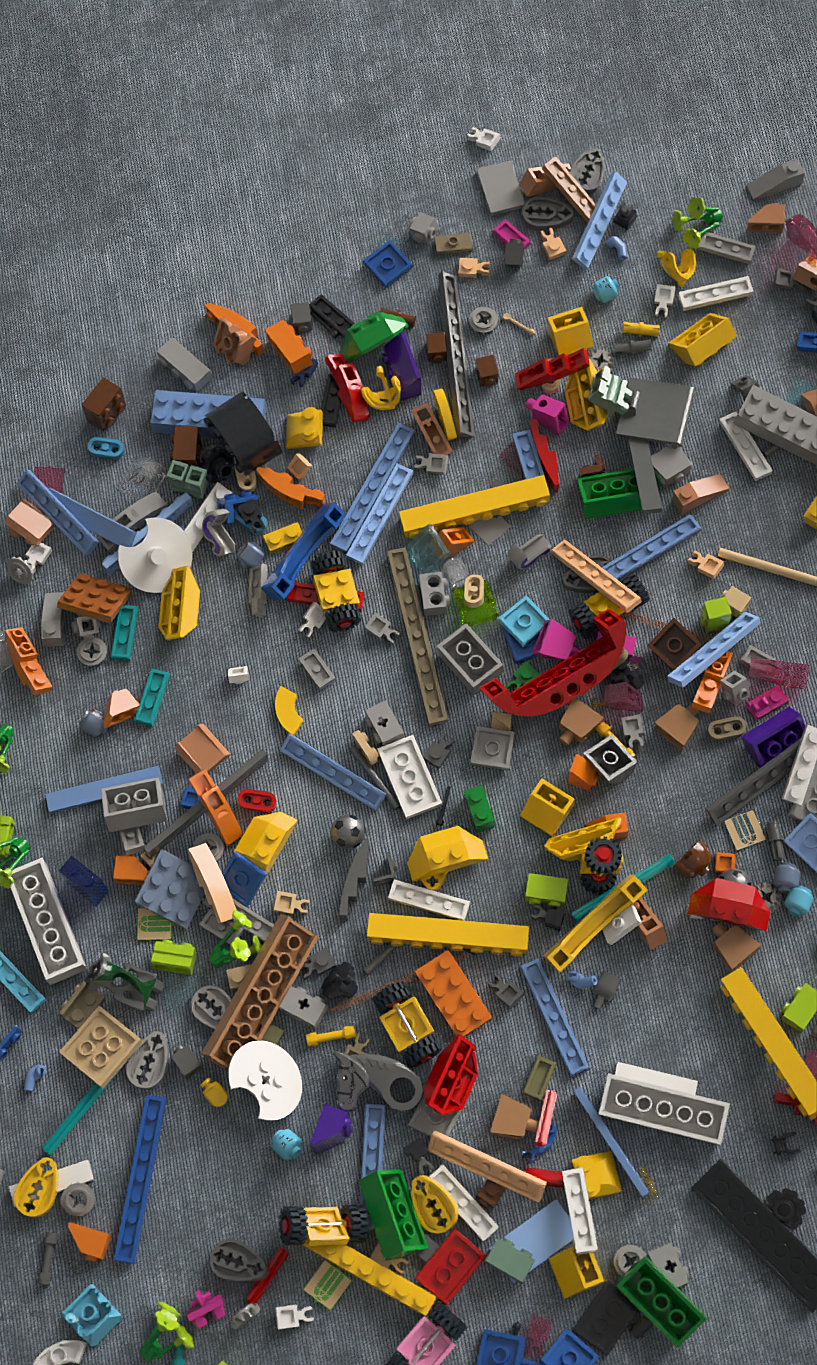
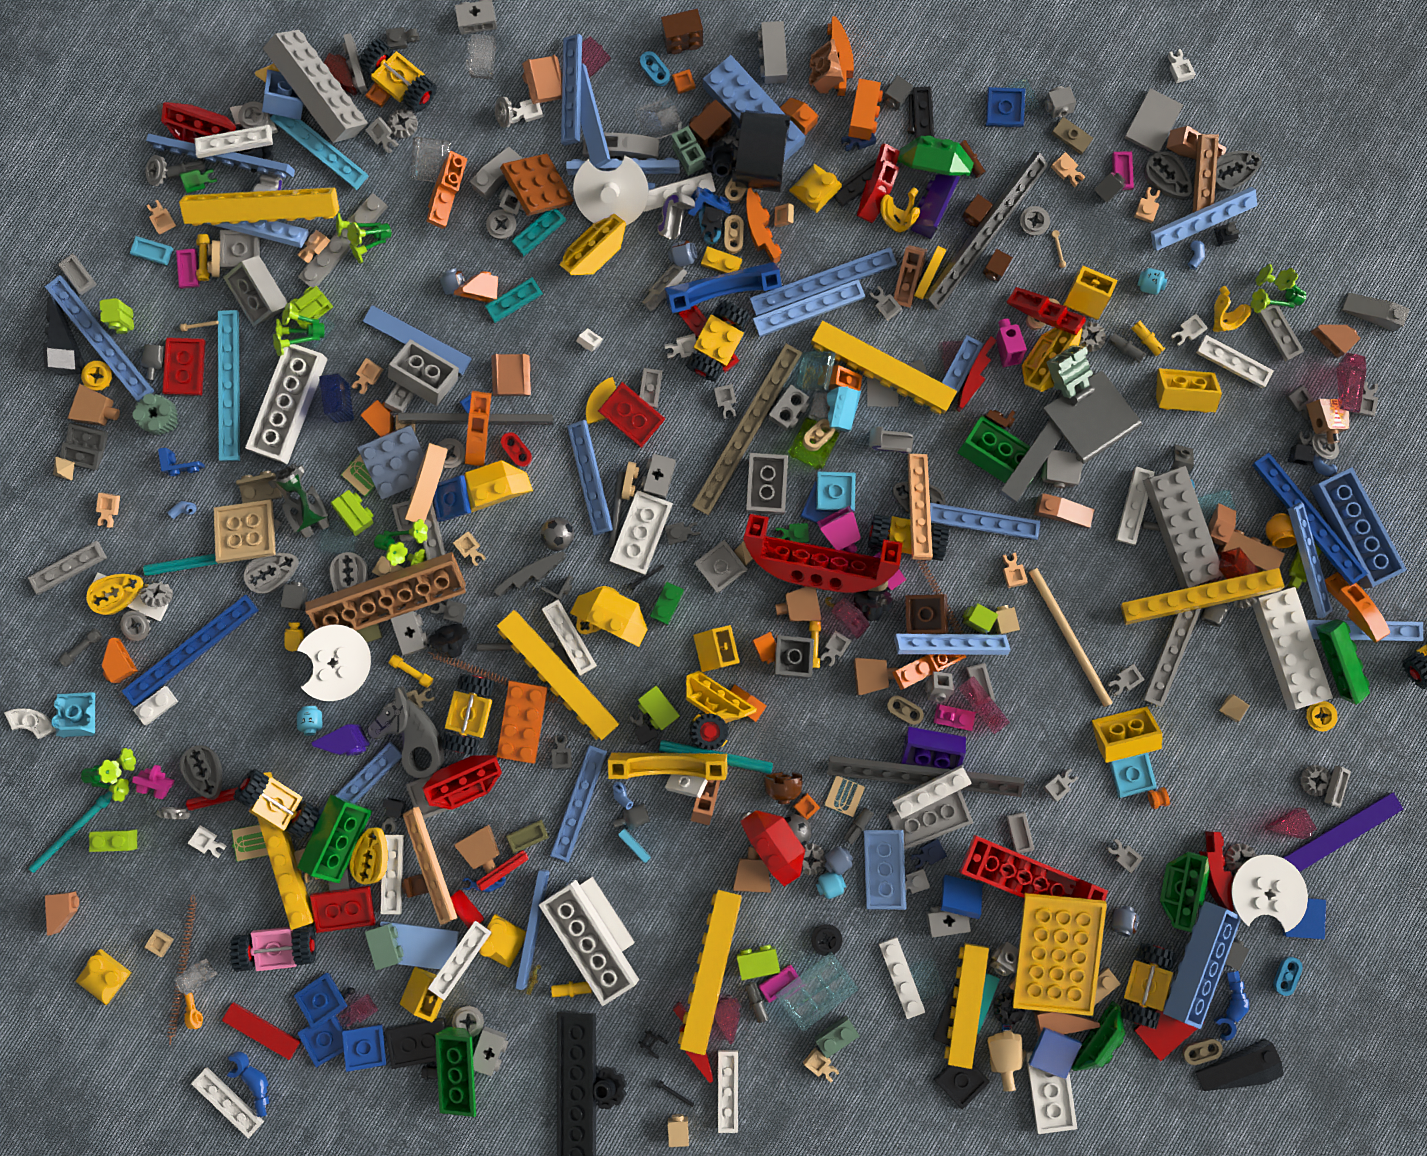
camera: 35 degrees right, 15 degrees up
(67, 1164) = (160, 599): none -> light grey gear
(89, 844) = (368, 373): none -> light nougat plate
(135, 439) = (683, 81): none -> orange tile
(151, 1249) = (155, 705): none -> white plate
(249, 385) = (800, 114): none -> orange slope
(276, 511) = (733, 235): none -> tan plate
(321, 698) = (631, 414): none -> red tile
(471, 554) = (843, 406): none -> medium azure slope
(626, 1007) = (634, 845): none -> medium azure tile
(684, 1160) = (570, 989): none -> yellow pin

